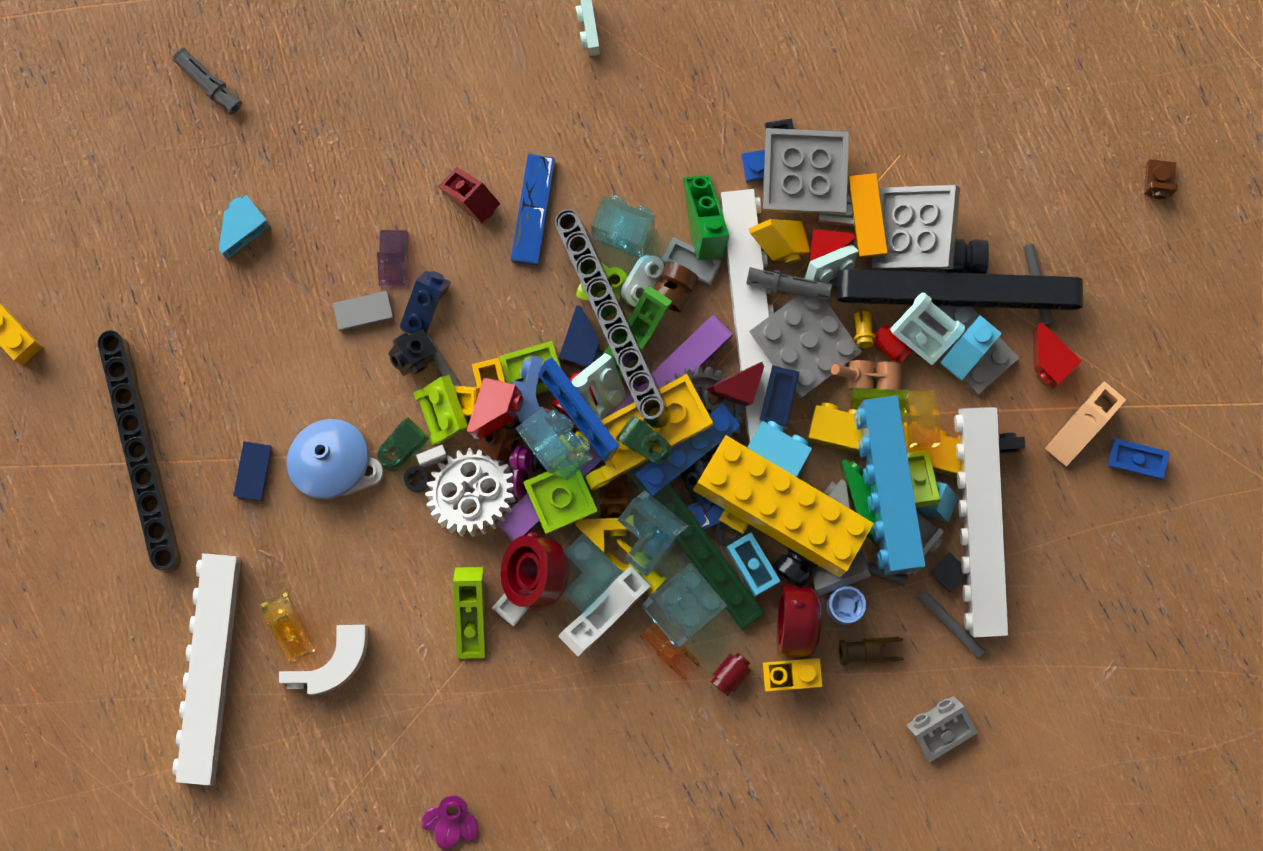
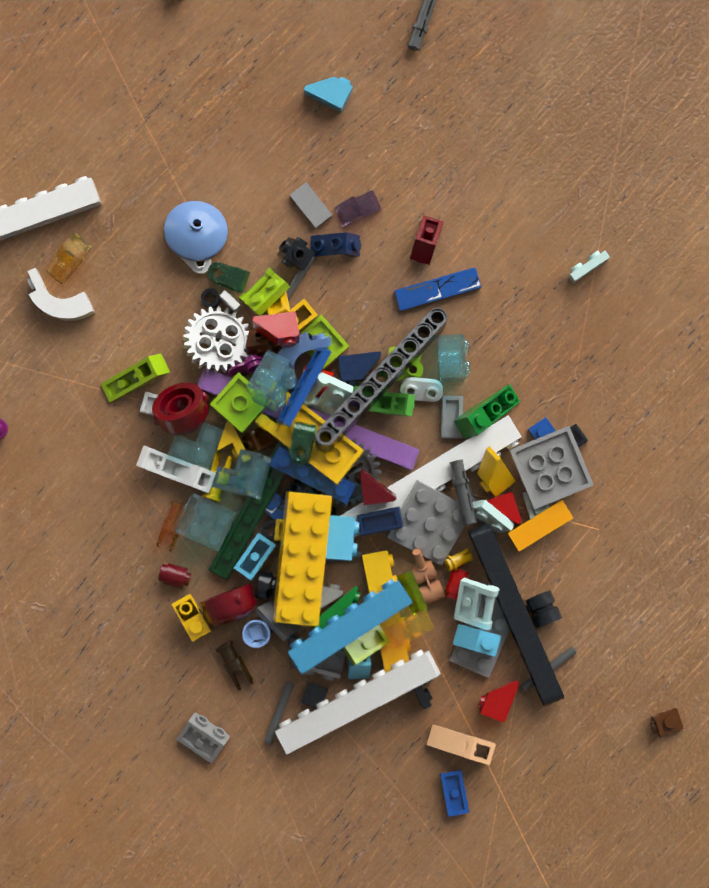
camera: 65 degrees right, 5 degrees up
(131, 439) = (147, 90): black beam -> none
(252, 471) = (164, 183): dark blue tile -> none
(681, 280) = (434, 413): reddish brown wheel -> none
(918, 227) = (547, 565): light grey plate -> none

